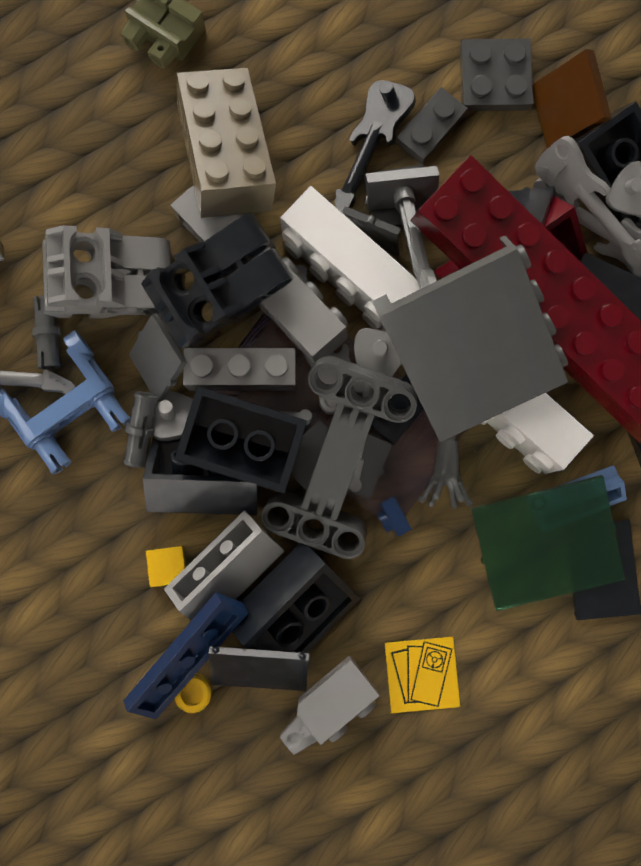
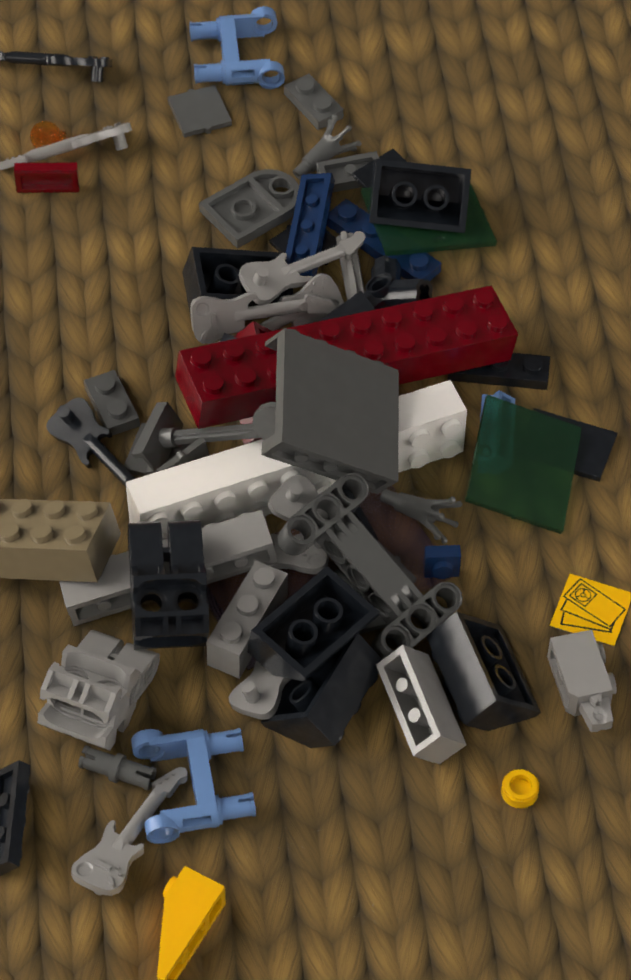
camera: 60 degrees left, 30 degrees down
(140, 429) = (255, 722): dark grey pin -> none
(157, 357) = (199, 677): dark grey piece -> none
(165, 565) = (391, 762): yellow tile -> none
(185, 656) = (483, 762): dark blue plate -> none
(258, 668) = (523, 714): black piece -> none
(496, 74) = (96, 340): dark grey plate -> none
(571, 99) = (158, 294): reddish brown tile -> none

